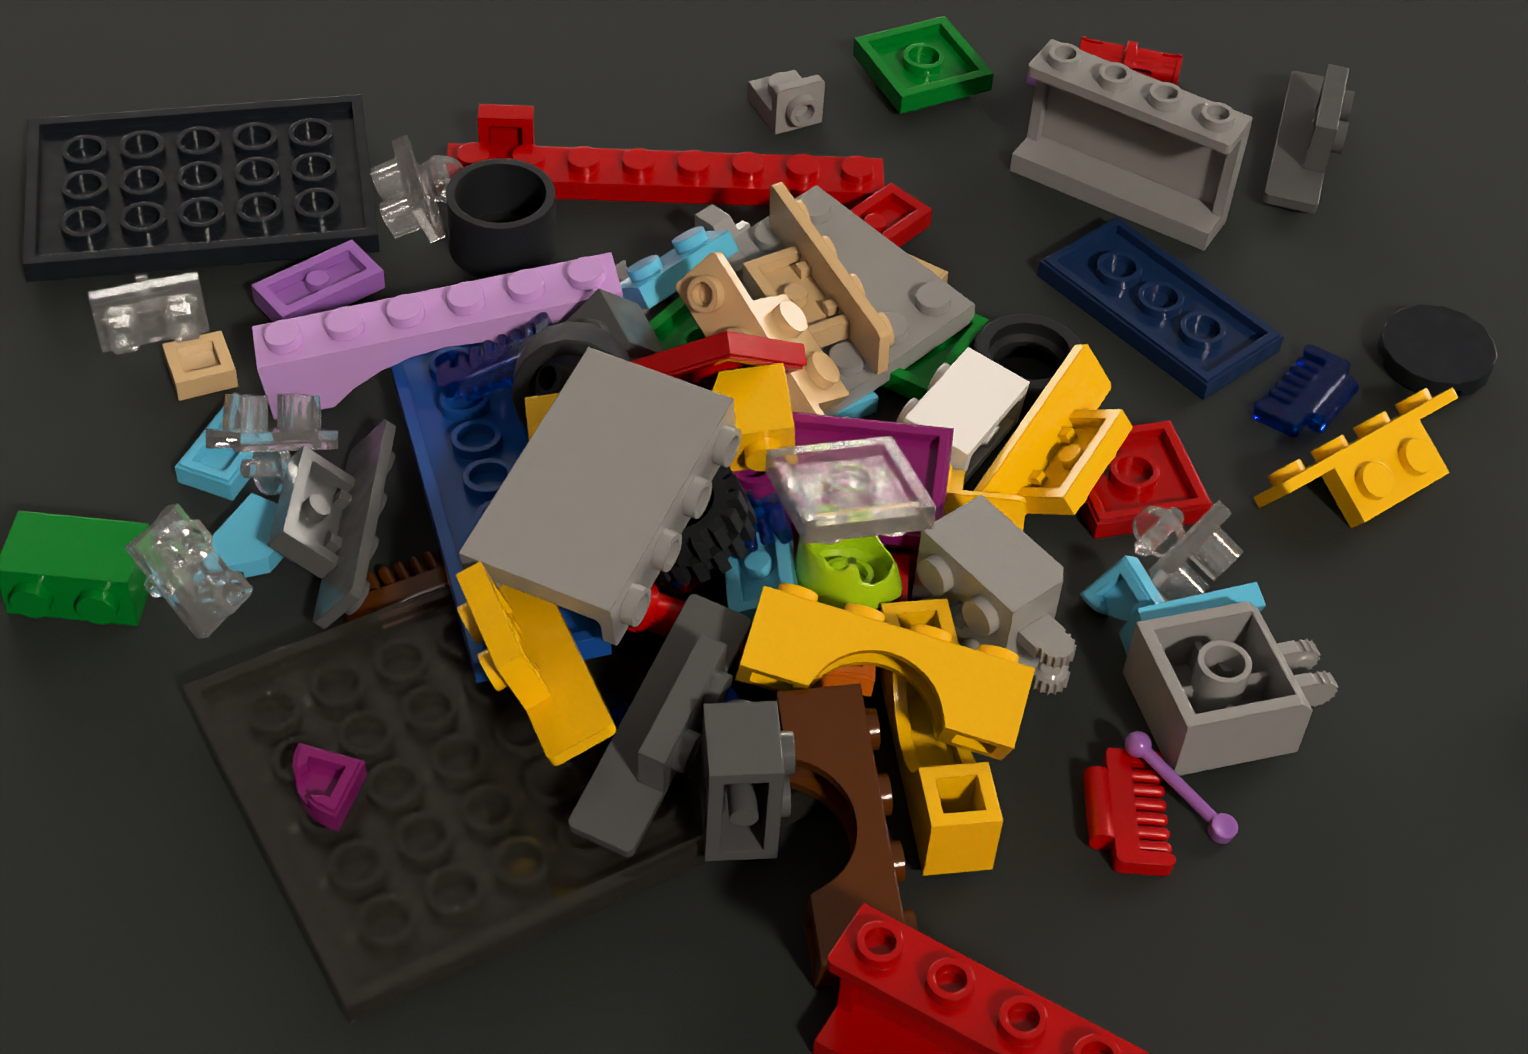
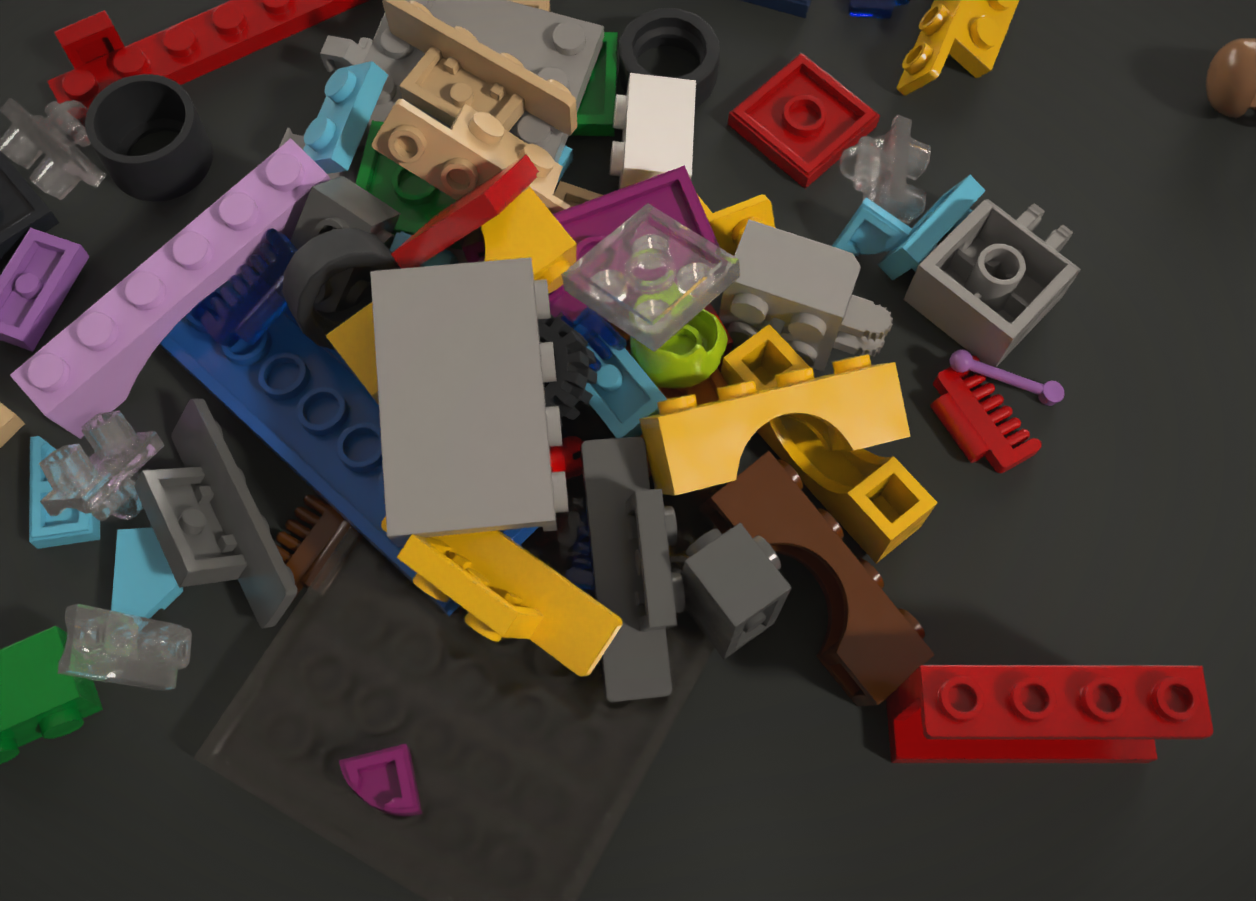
camera: 30 degrees left, 20 degrees up
(1061, 440) = (751, 126): yellow bracket -> none

